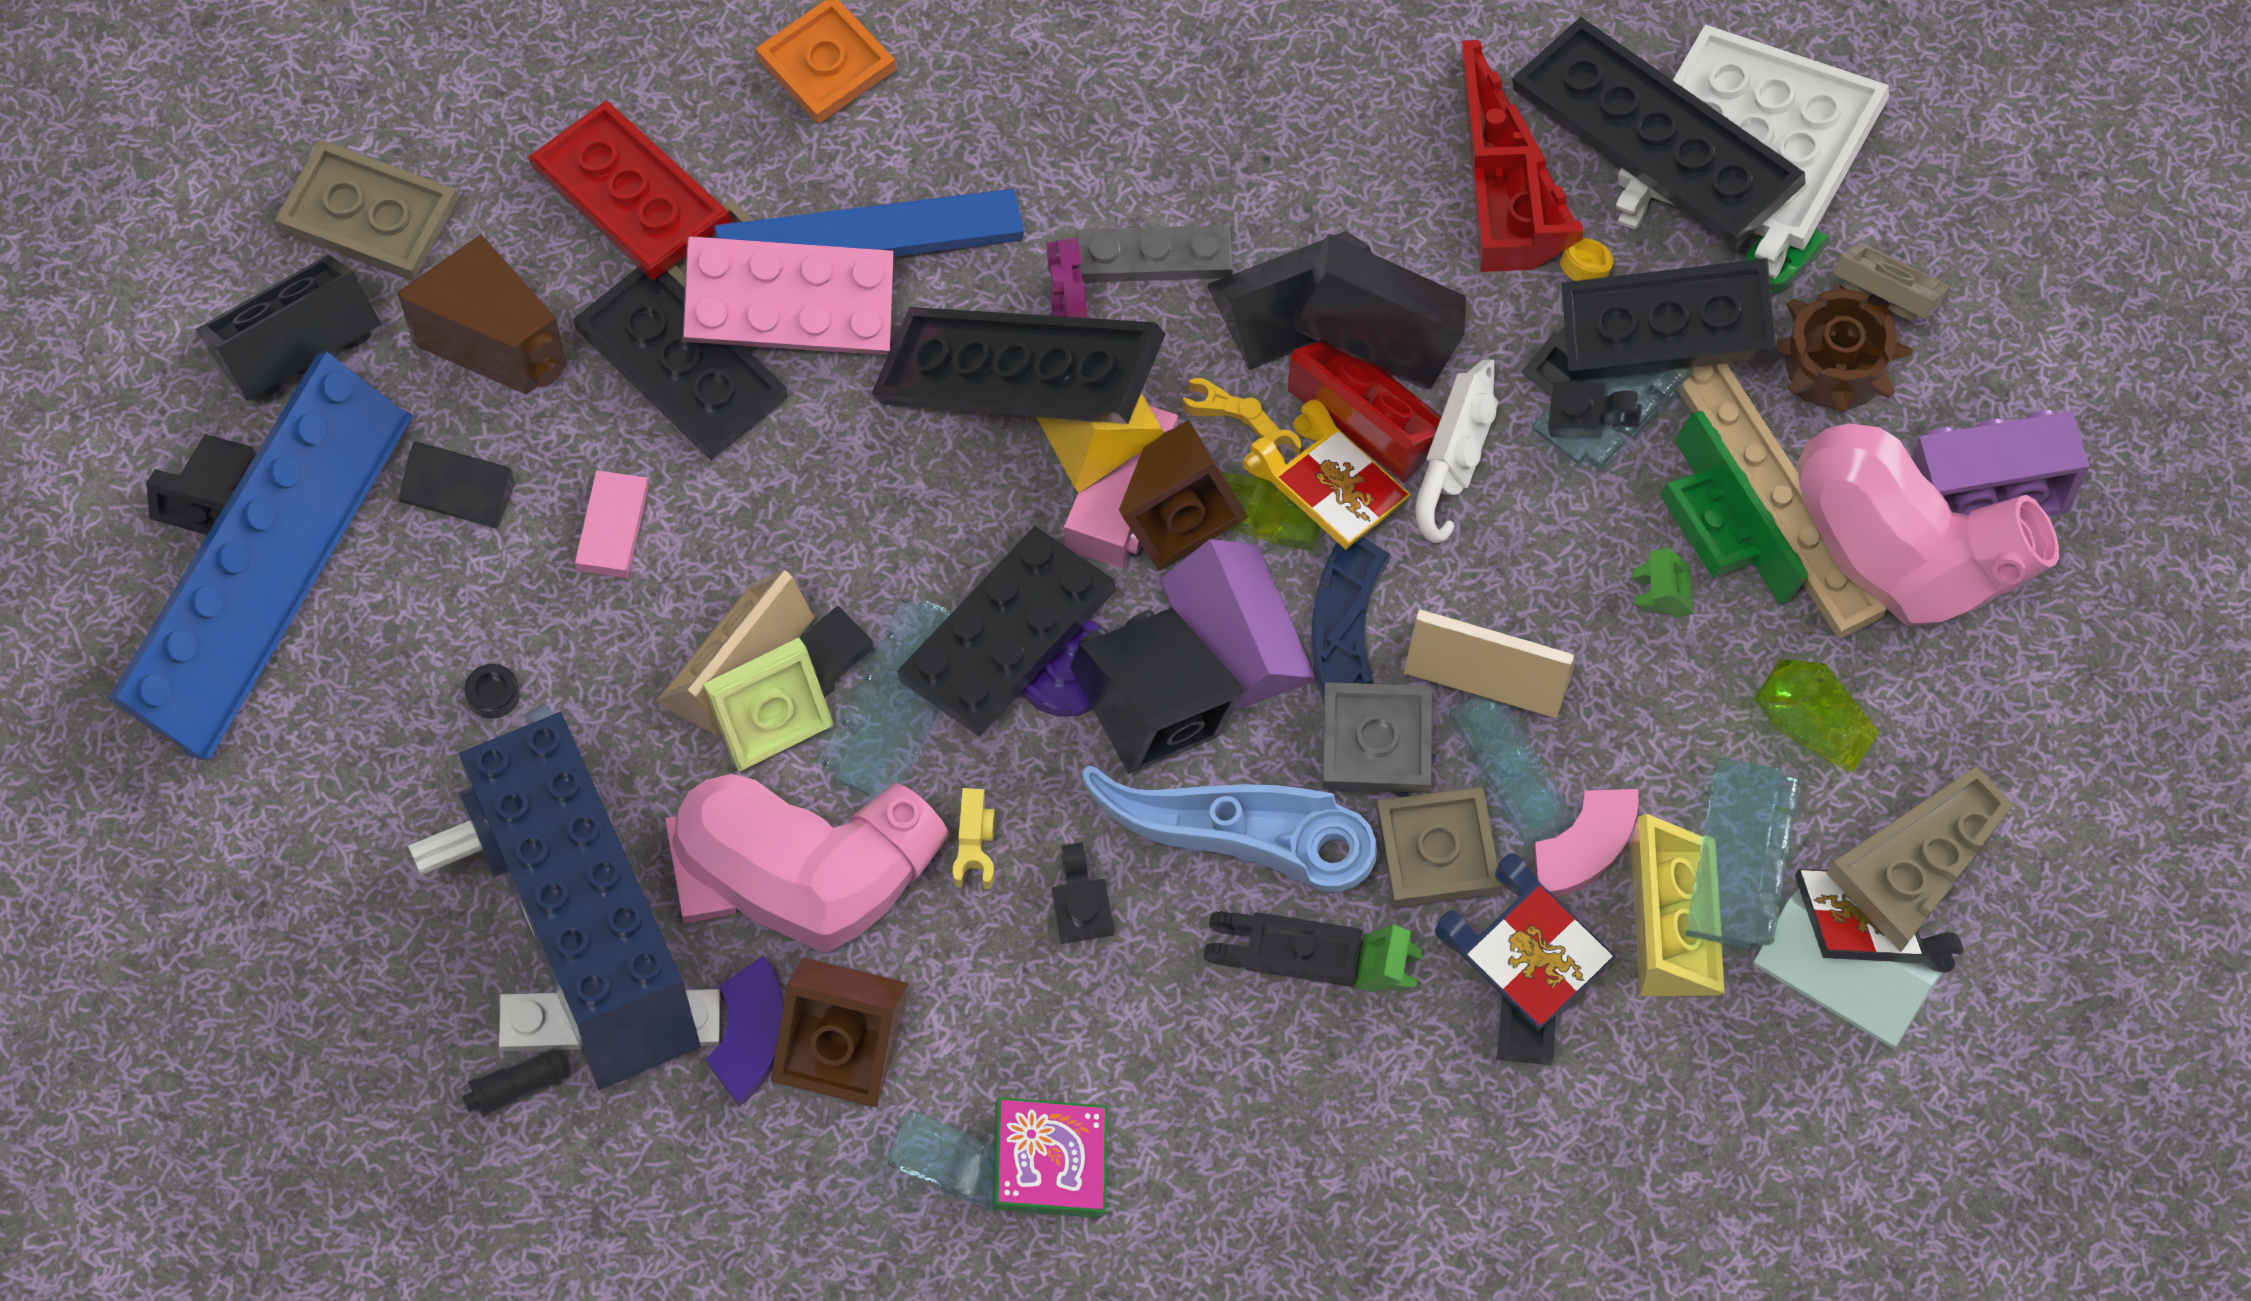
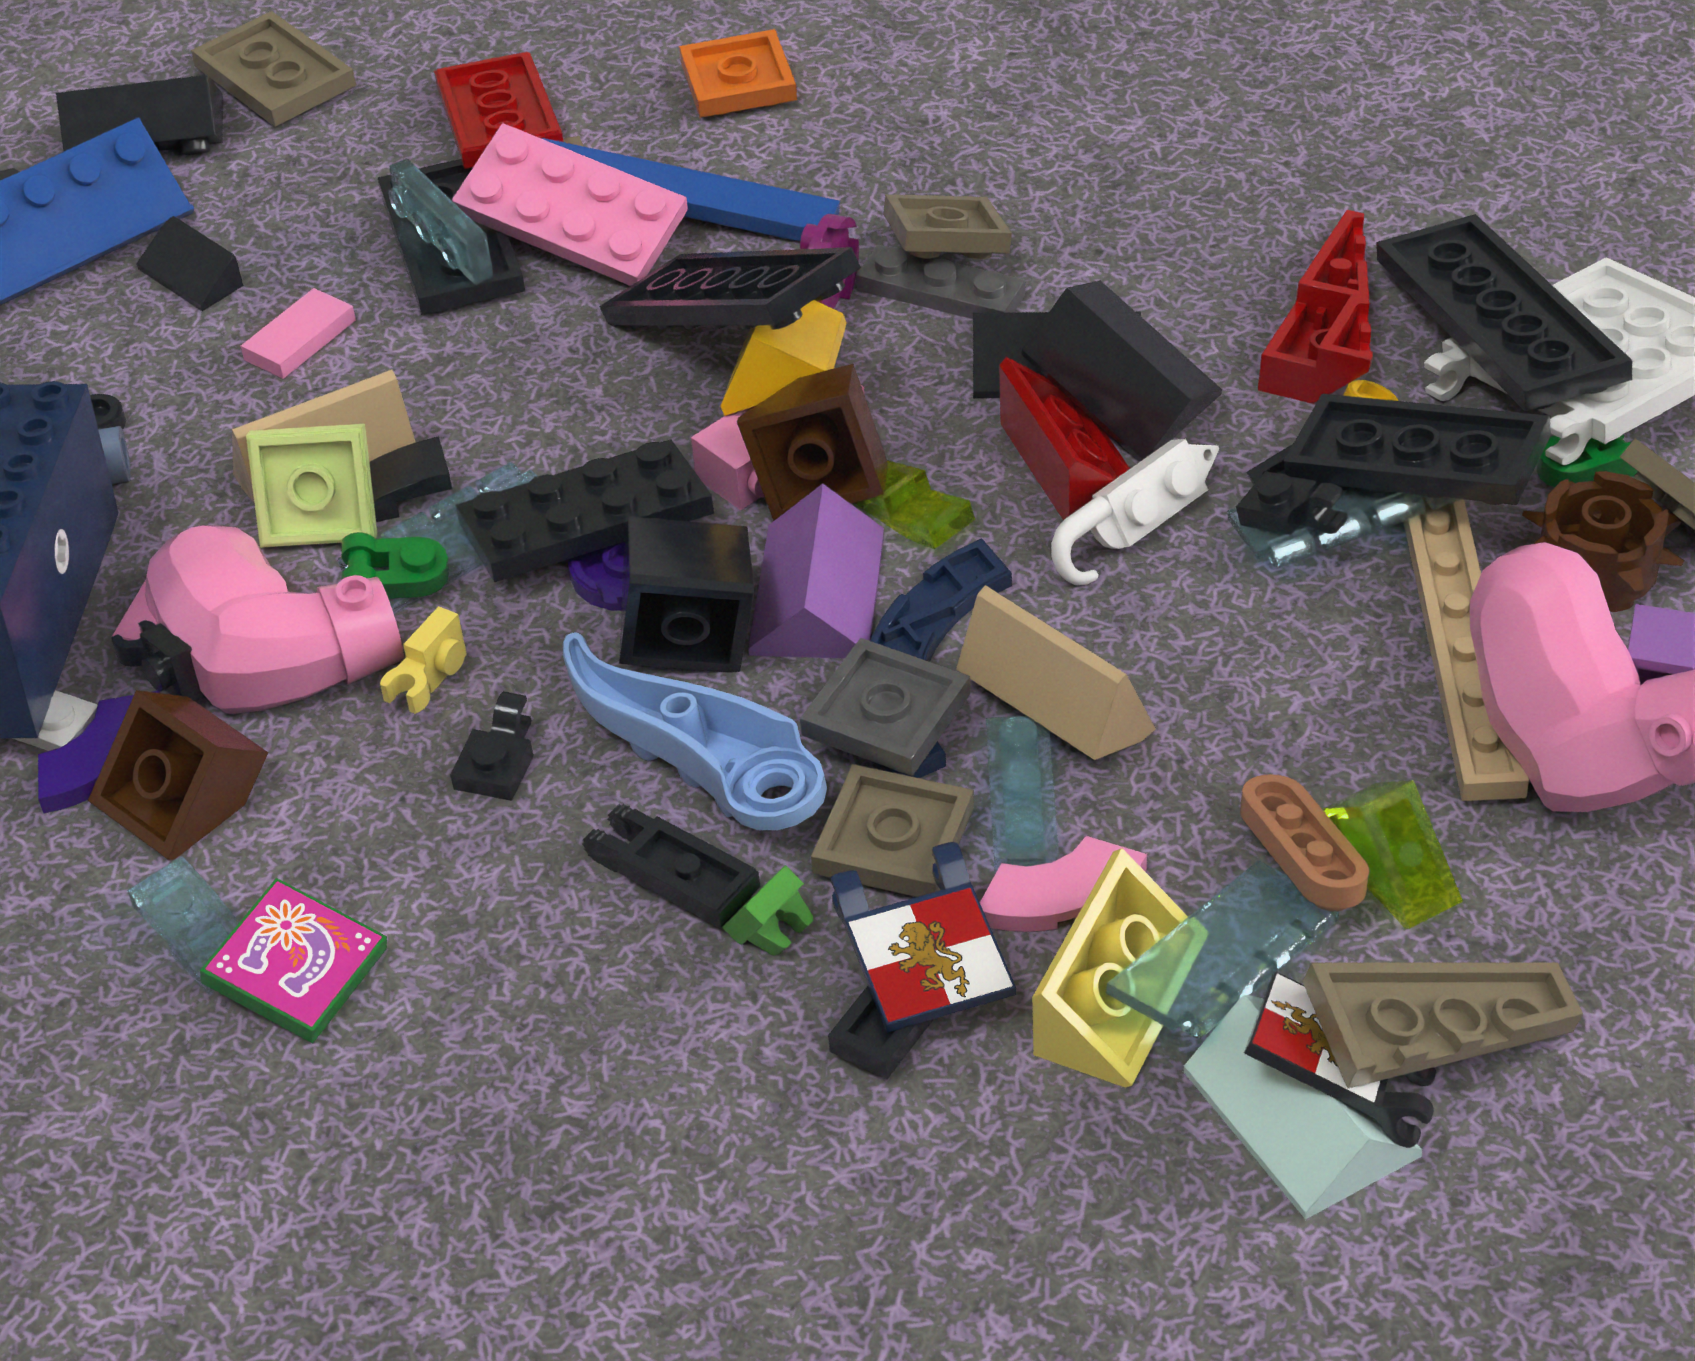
camera: 30 degrees right, 20 degrees down
(484, 319) = (292, 145): reddish brown slope -> none
(686, 364) = (440, 221): none -> clear light blue plate
(761, 930) = (163, 659): none -> black plate
(896, 743) = (415, 563): none -> green plate
(1134, 190) = (947, 224): none -> dark tan plate
(1246, 410) = (922, 409): yellow piece -> none
(1330, 478) = (987, 497): flag -> none
(1669, 584) = (1290, 685): bright green tile -> none
(1726, 515) = (1391, 649): green bracket -> none
(1741, 717) = (1304, 842): none -> nougat plate

